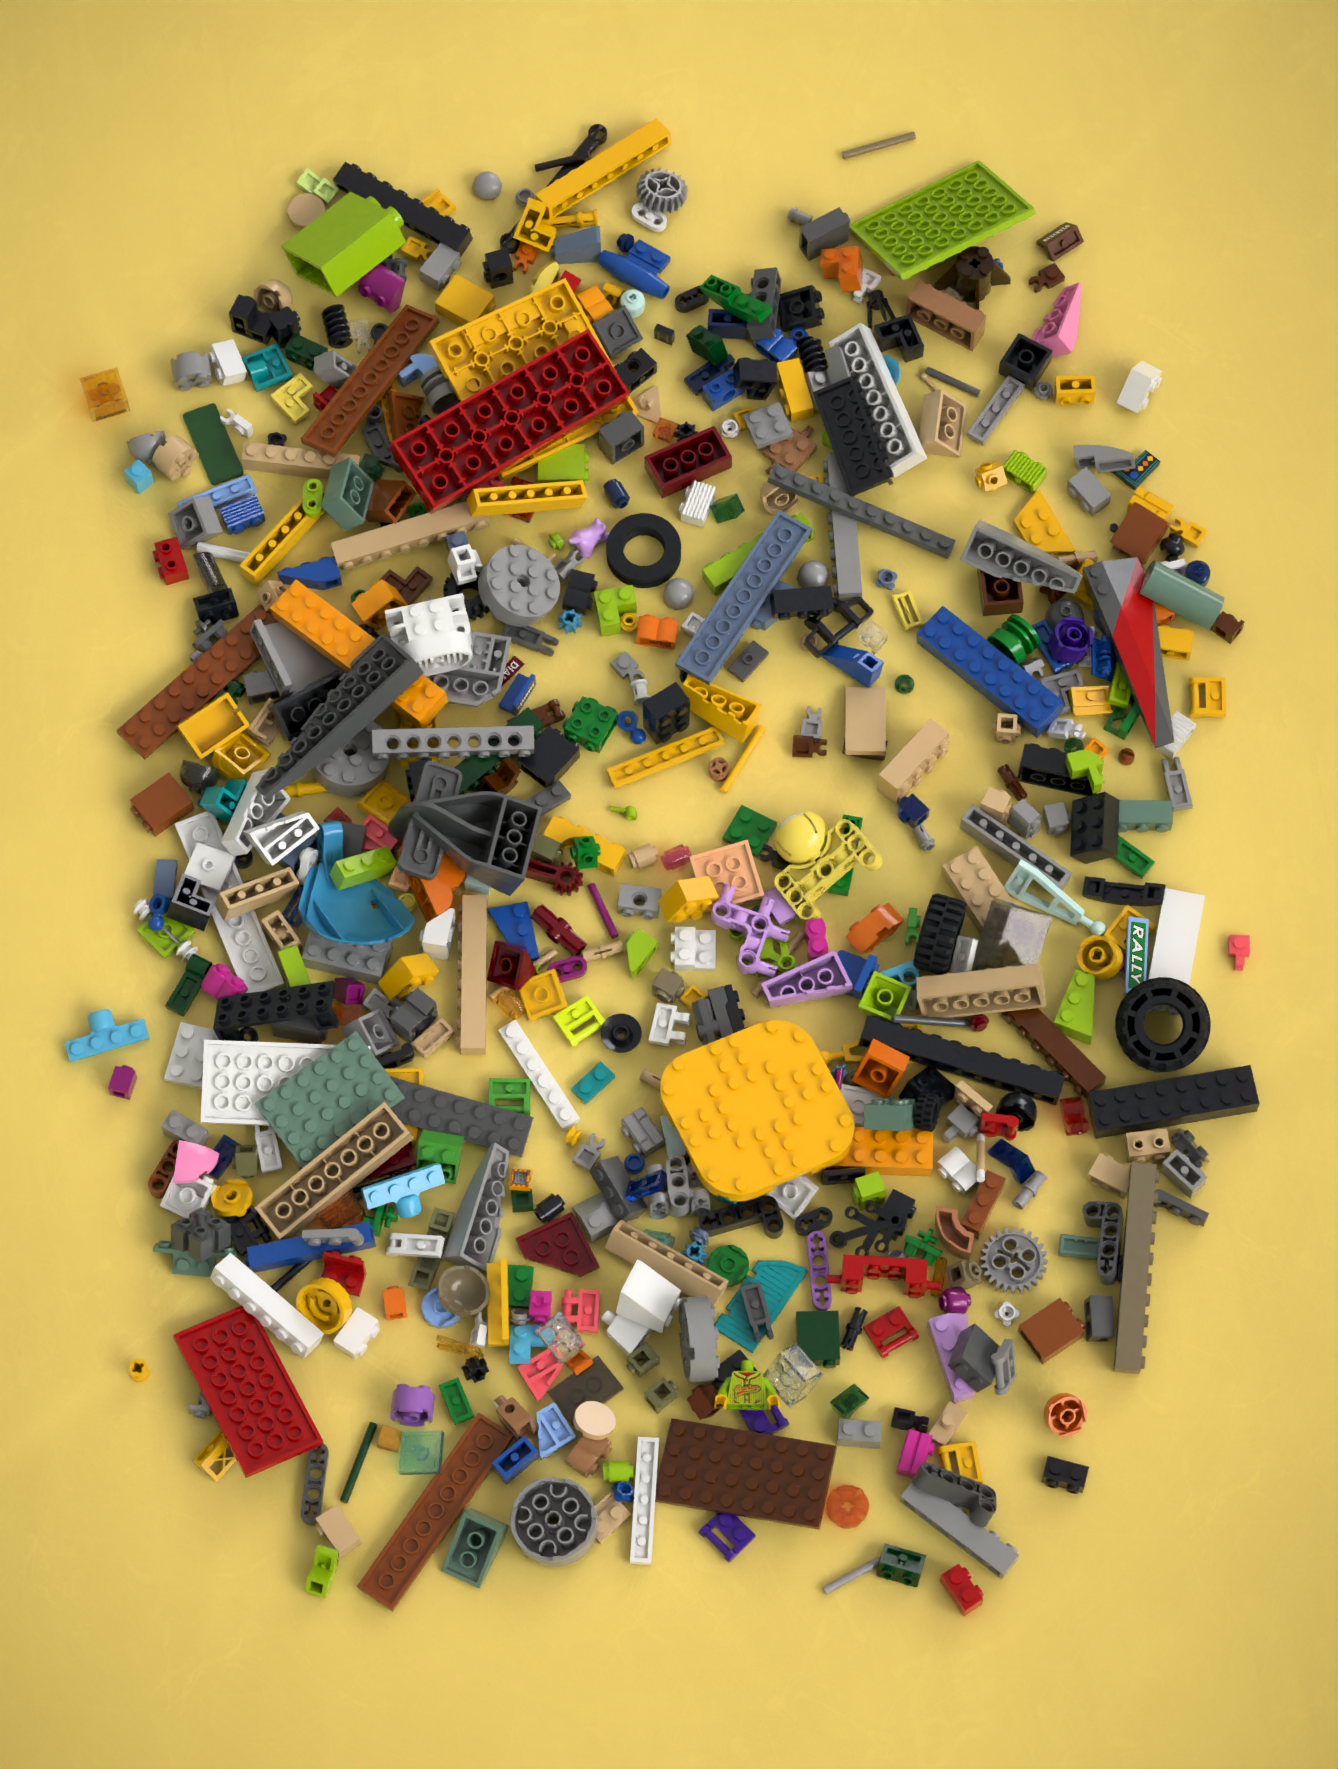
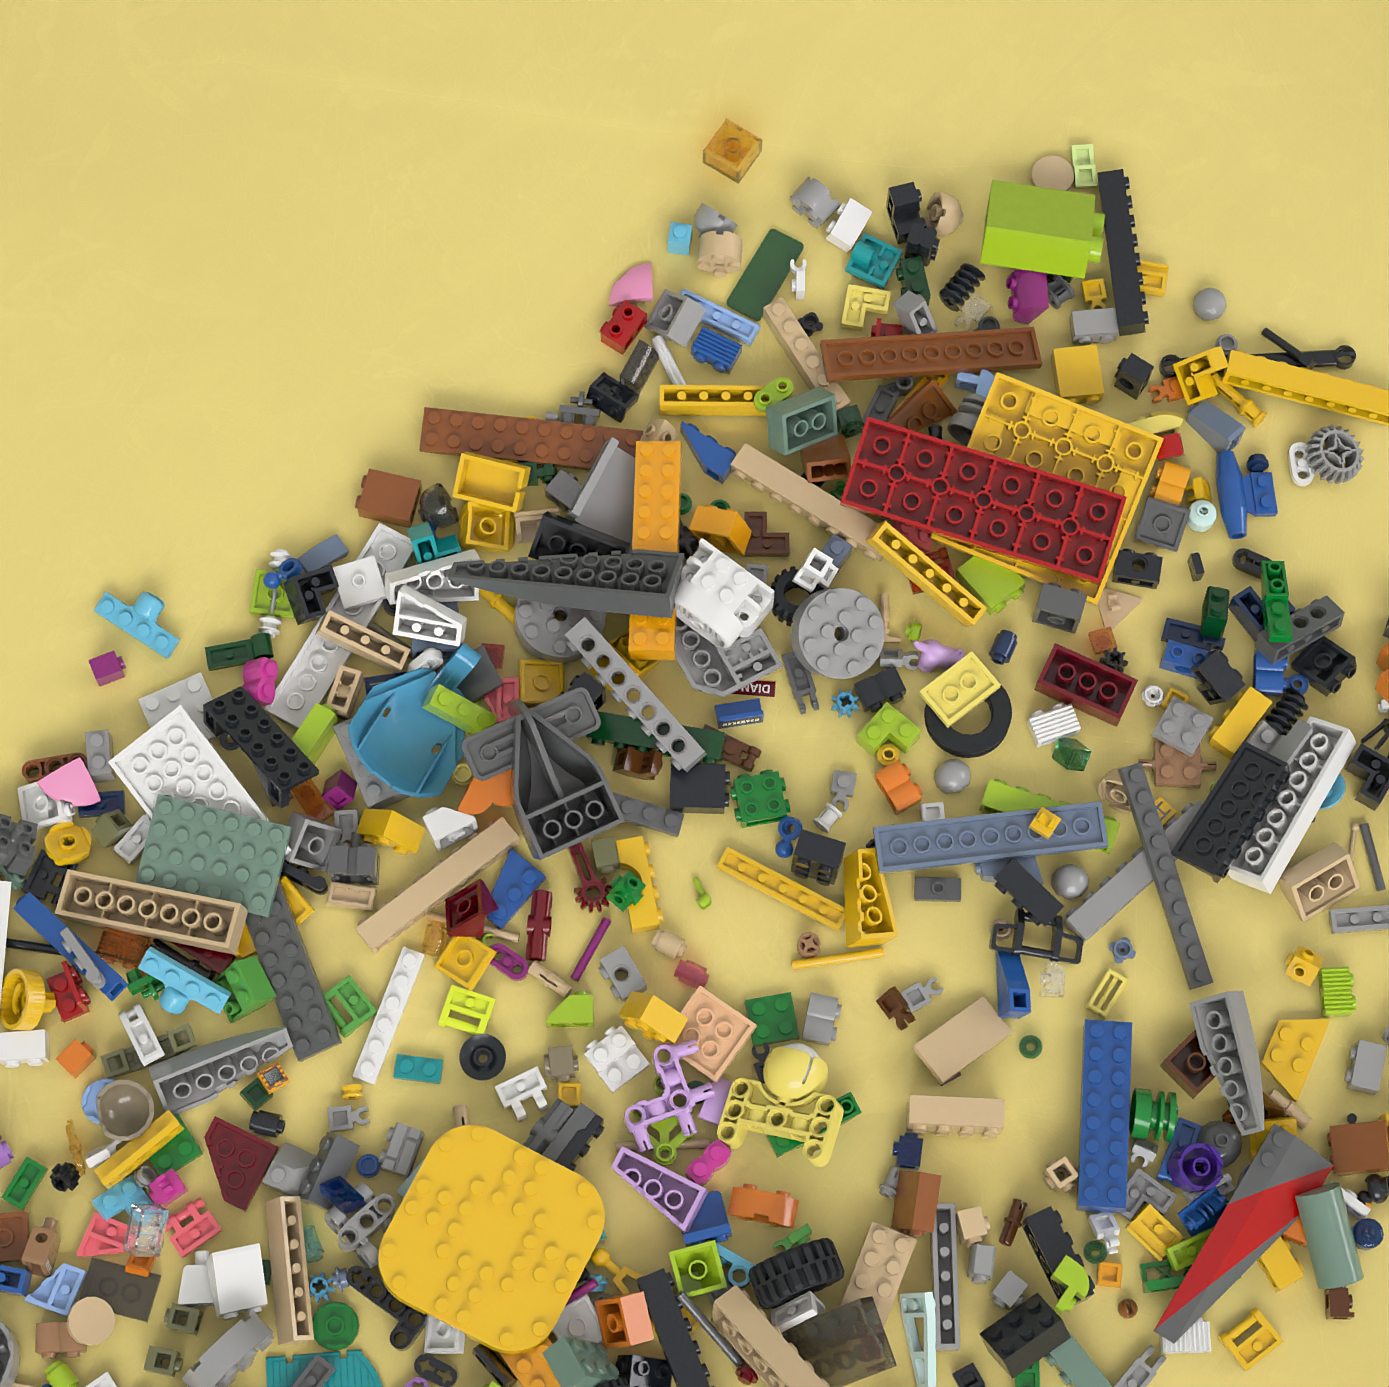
camera: 50 degrees right, 5 degrees up
(145, 532) = (633, 286): none -> bright pink brick
(625, 539) = (959, 689): none -> light yellow plate
(764, 554) = (1045, 823): none -> yellow tile
(776, 799) = (820, 1019): none -> light grey brick
(952, 828) = (916, 1202): none -> dark orange brick

